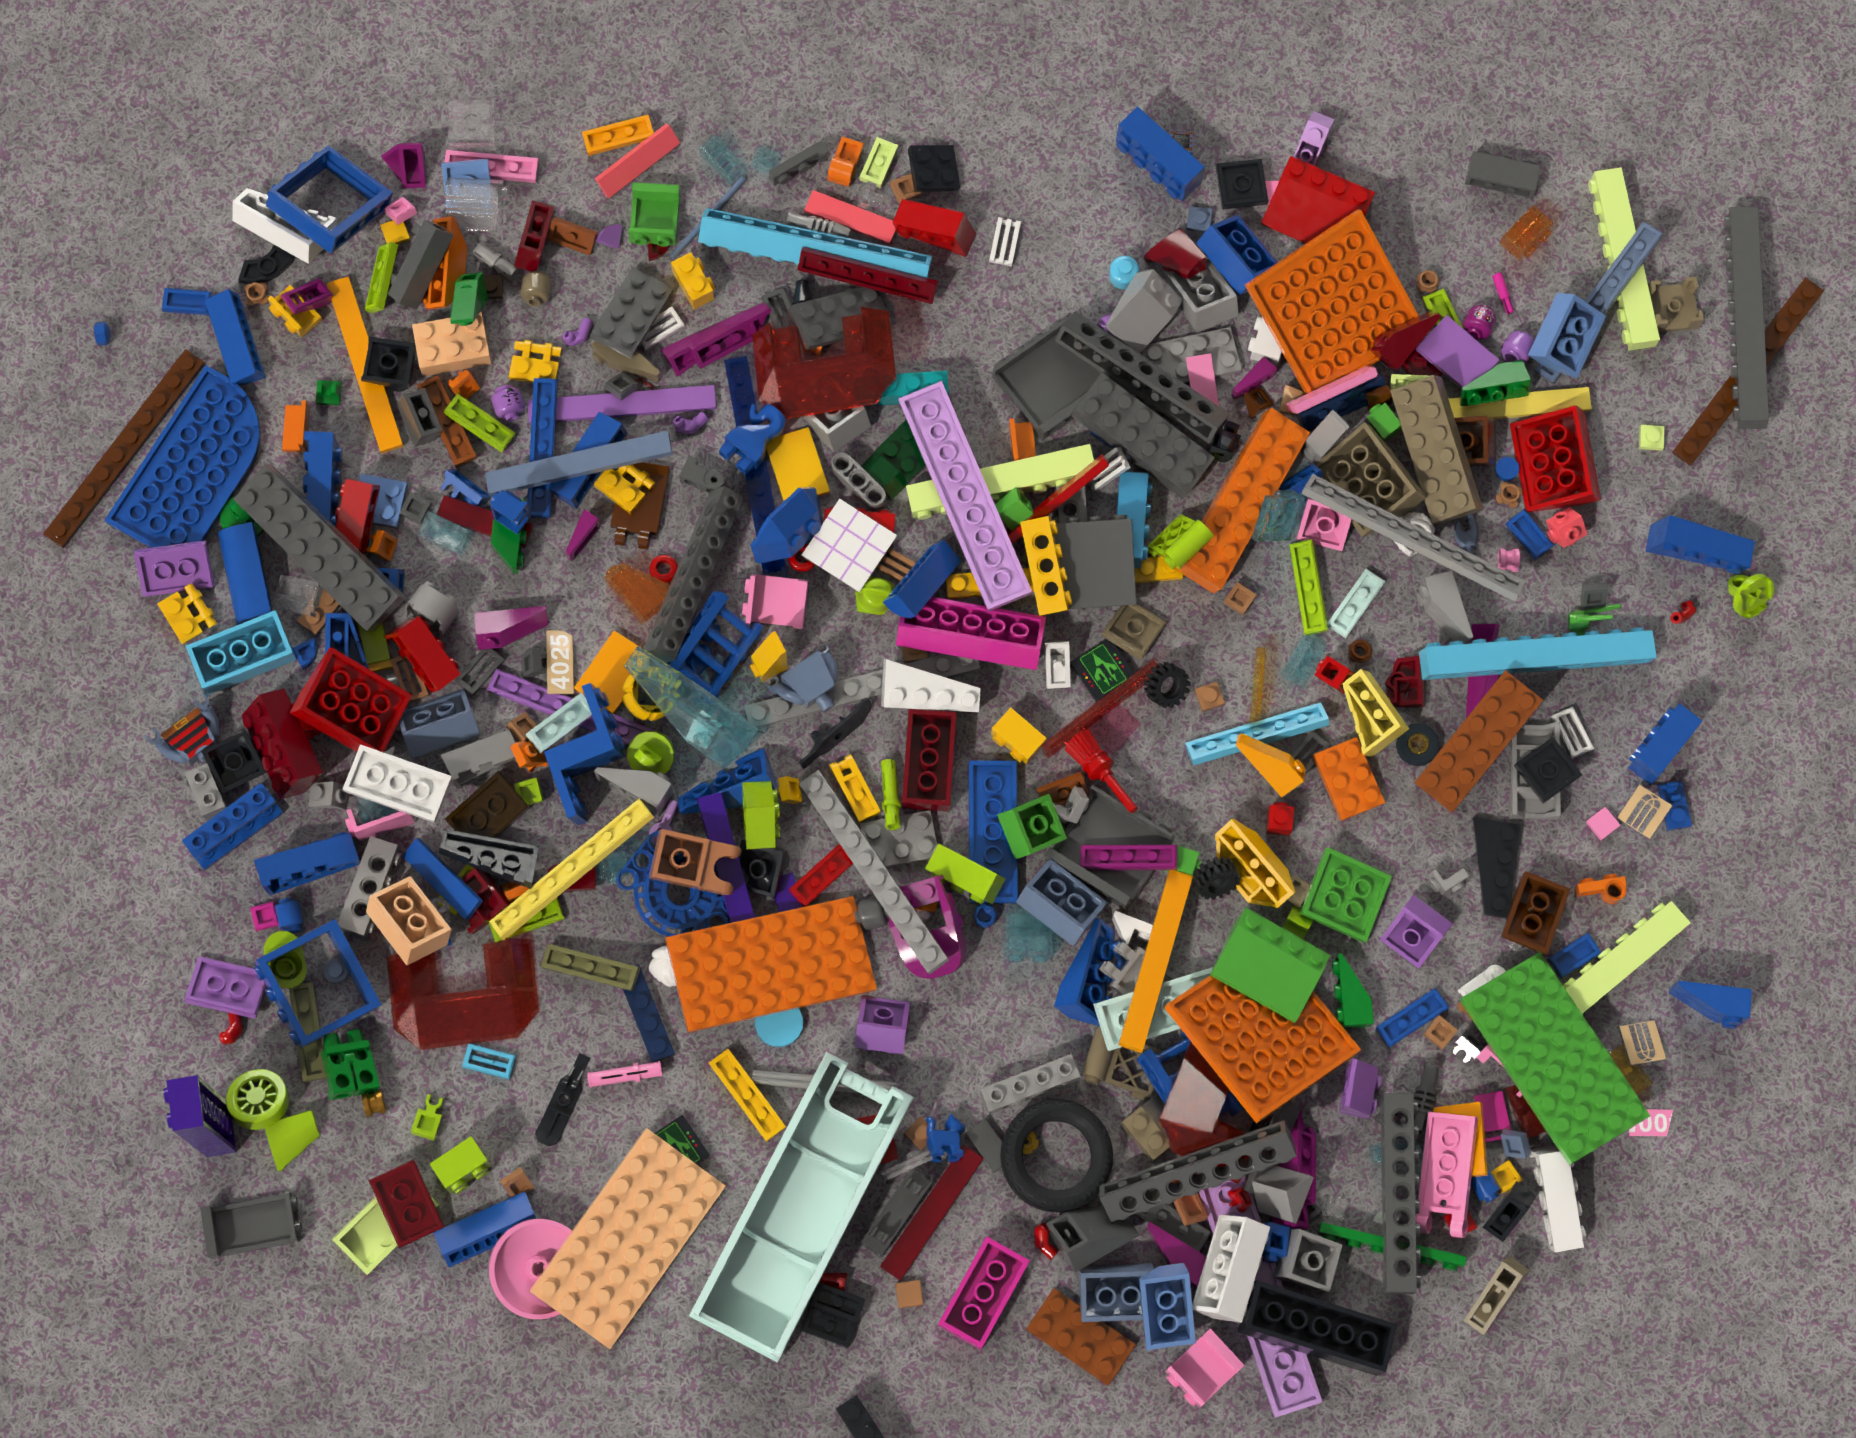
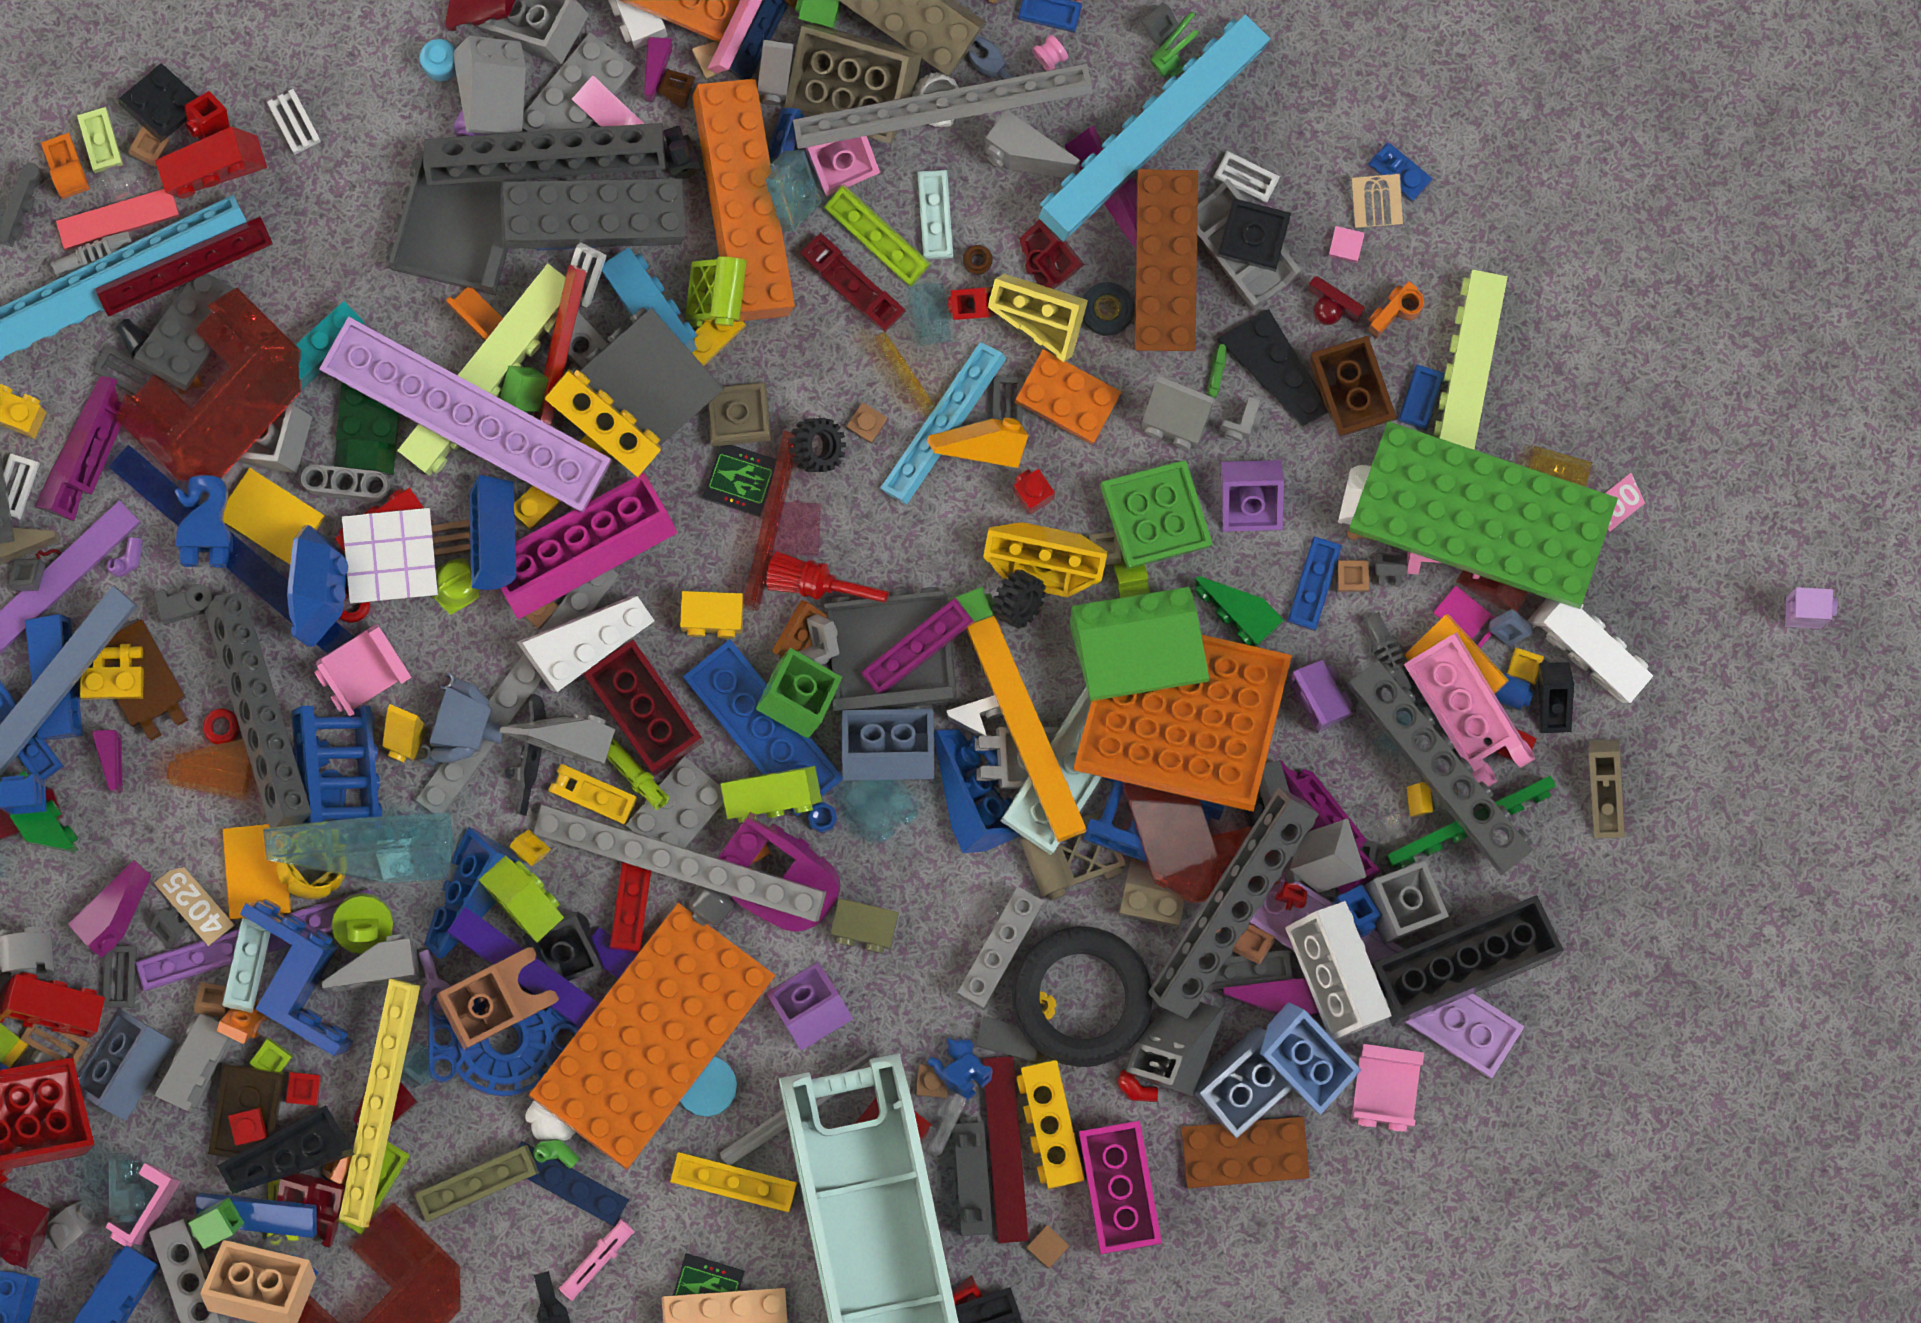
camera: 35 degrees left, 5 degrees up
(397, 783) = (135, 1160): white plate -> none
(414, 863) = (216, 1223): none -> bright green brick
(481, 820) = (247, 1126): none -> red plate
(533, 826) = (303, 1089): none -> red plate
(653, 985) = (555, 1150): none -> bright green arm
(871, 744) = (575, 738): none -> light grey slope
(954, 196) = (206, 116): none -> red brick
(956, 1002) = (864, 925): none -> olive brick
(994, 1187) = (1049, 1076): none -> yellow brick
(1057, 665) = (693, 511): white slope -> none
(1239, 598) = (818, 301): medium nougat plate -> none
(1269, 603) = (852, 283): none -> dark red slope
(1370, 1205) = (1419, 799): none -> yellow tile
(1409, 842) = (1177, 413): none -> light grey slope
(1460, 834) = (1218, 365): none -> bright green piece
(1564, 852) = (1332, 303): none -> dark red tile
(1641, 1043) = (1551, 431): piece -> none
(1663, 743) = (1344, 119): blue brick -> none
(1718, 1003) = (1594, 335): blue slope -> none
(1721, 1285) = (1810, 607): none -> lavender brick

